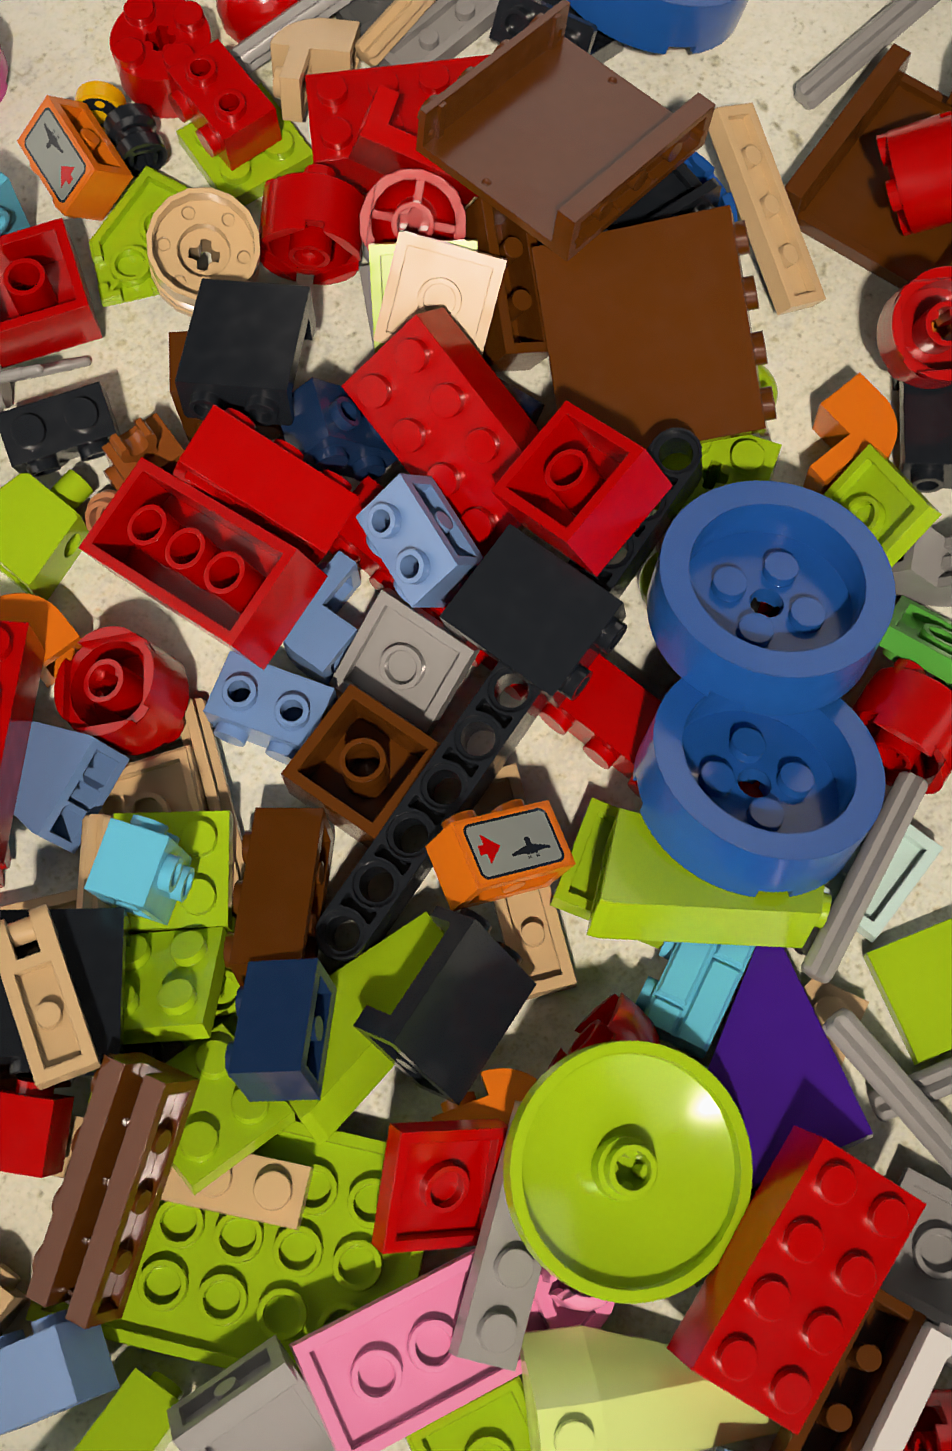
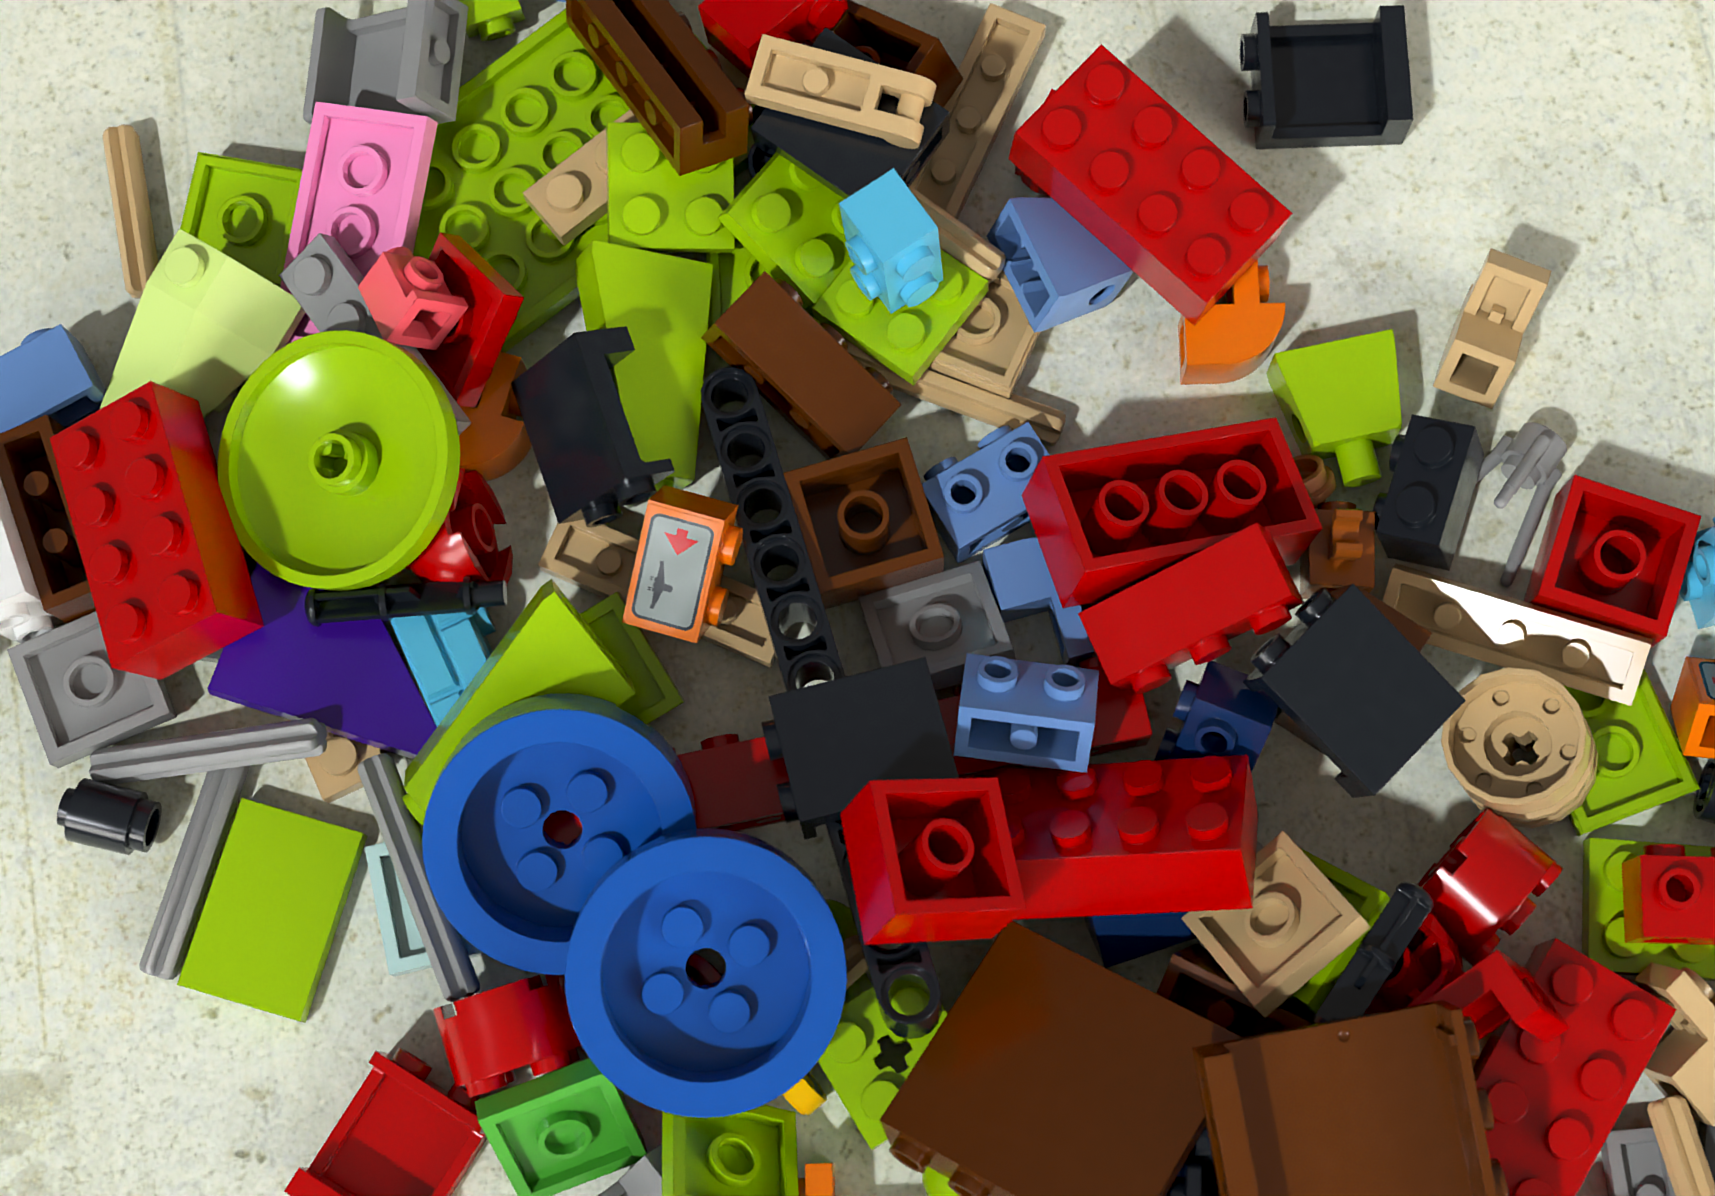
camera: 130 degrees right, 5 degrees up
(123, 691) = (1101, 366): red brick -> none
(124, 317) = (1520, 634): none -> tan plate
(282, 1030) = (671, 271): dark blue brick -> none
(423, 220) = (1377, 954): none -> black piece
(456, 1228) = (410, 300): none -> coral brick
(684, 1035) = (403, 600): none -> black piece

